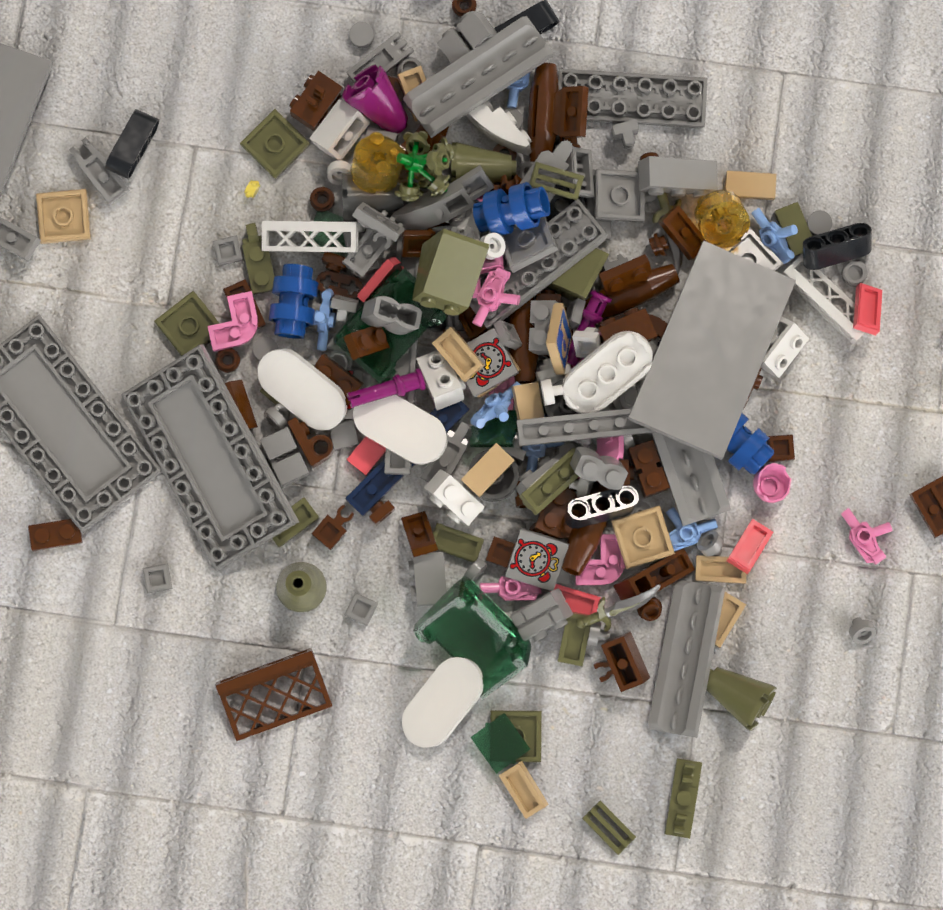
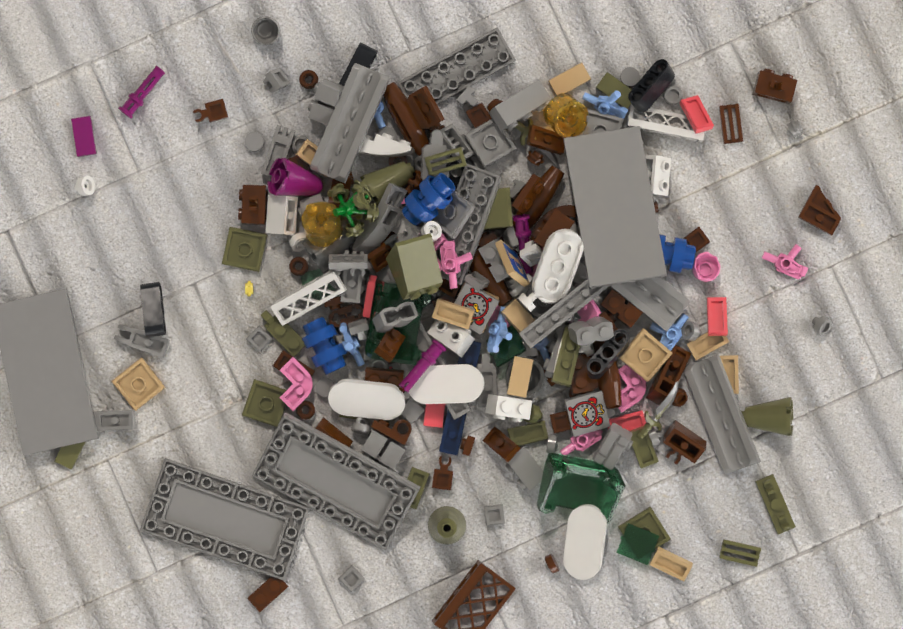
camera: 30 degrees left, 5 degrees up
(390, 704) = (551, 563): none -> reddish brown tile
(477, 526) = (535, 415): none -> olive tile
(625, 158) = (478, 115): none -> reddish brown plate
(908, 326) = (738, 123): none -> reddish brown tile

